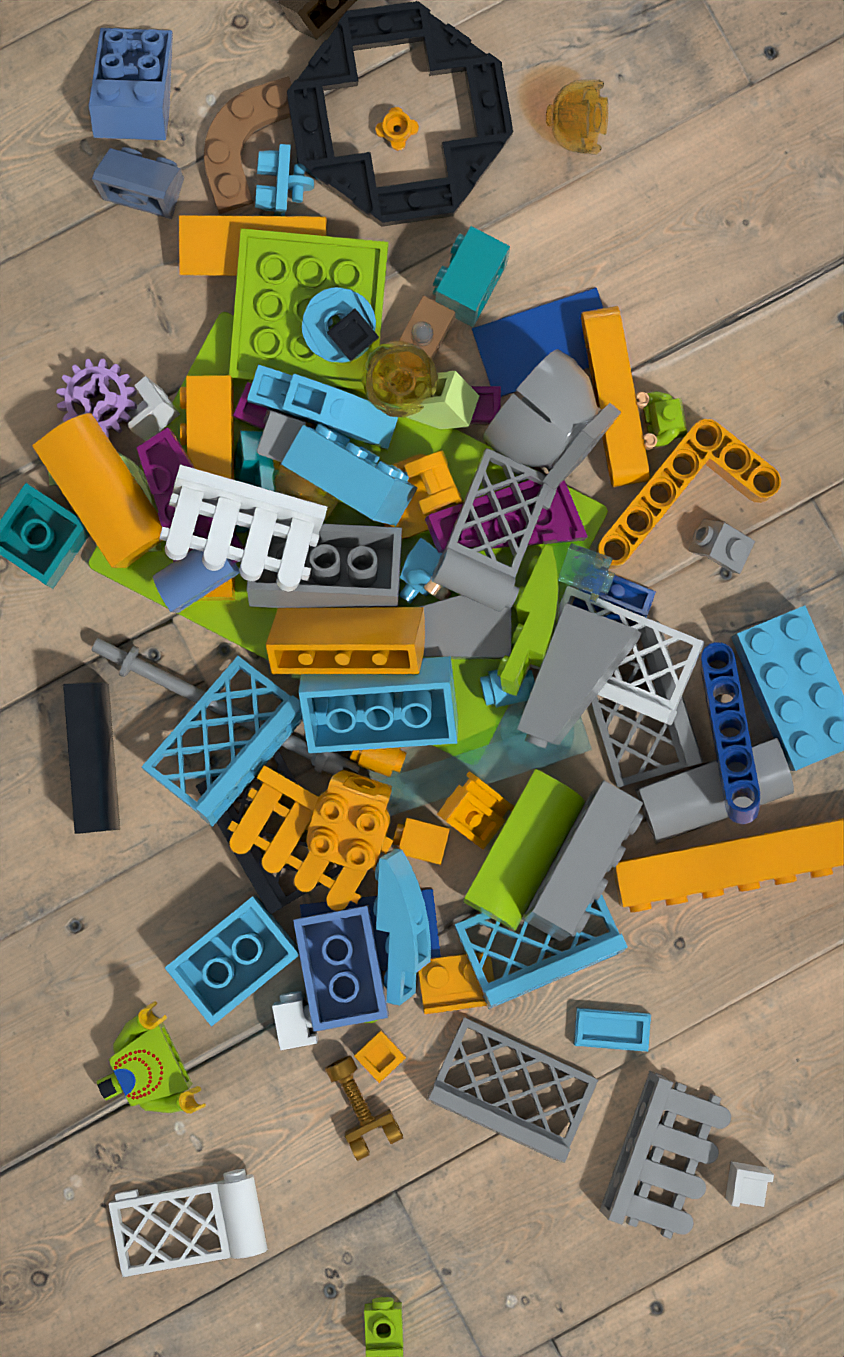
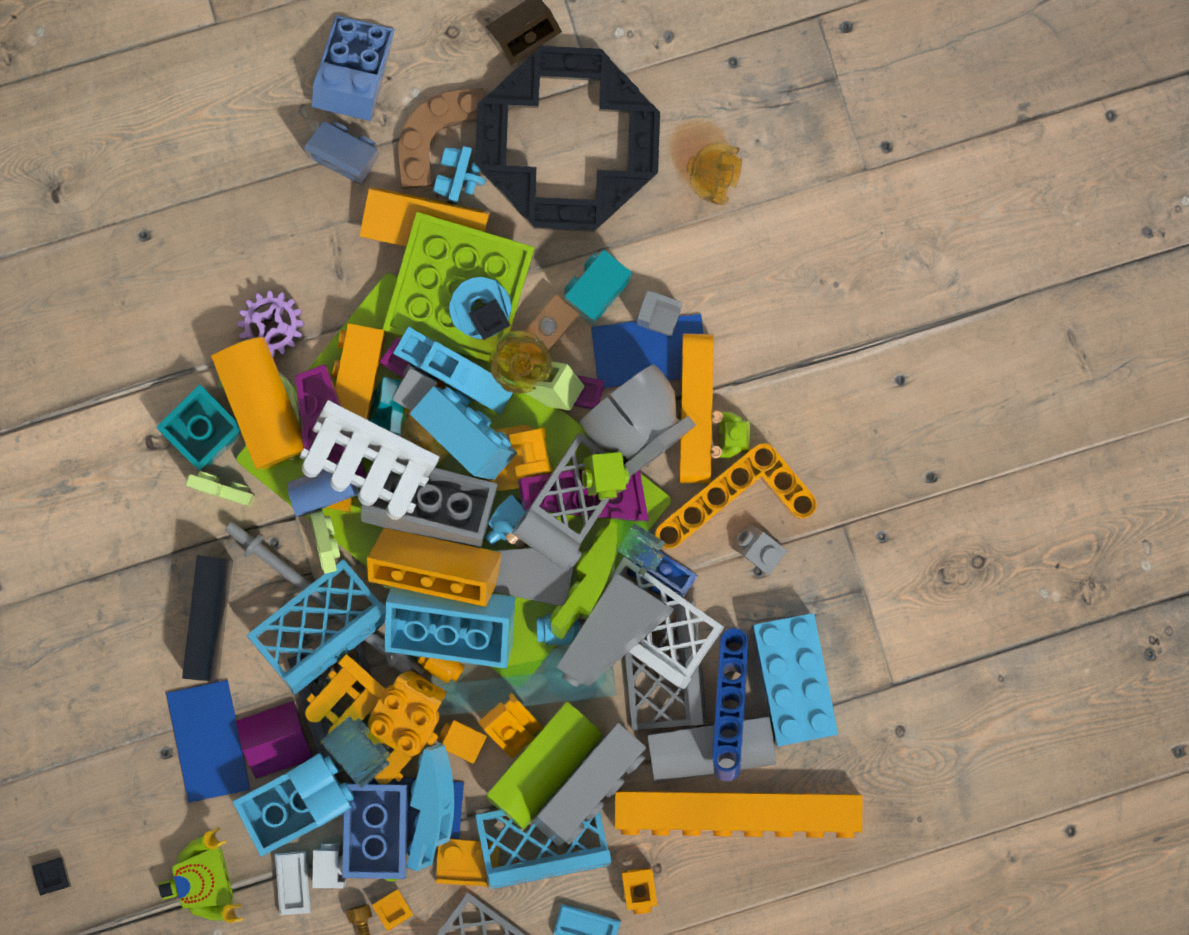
camera: 10 degrees right, 0 degrees up
(61, 599) = (210, 484): none -> yellowish green plate
(122, 902) = (208, 741): none -> blue piece
(153, 412) = (314, 344): white panel -> none
(199, 884) = (274, 740): none -> magenta slope
(214, 641) = (326, 546): none -> yellowish green plate
(256, 1048) = (293, 883): none -> white tile
(267, 931) = (321, 789): none -> medium azure brick
(299, 878) = (356, 751): none -> clear light blue brick
(394, 118) = (572, 149): light orange plate -> none
(527, 490) = (605, 475): none -> lime brick
(548, 294) = (659, 313): none -> light grey panel
(669, 957) = (637, 877): none -> light orange brick

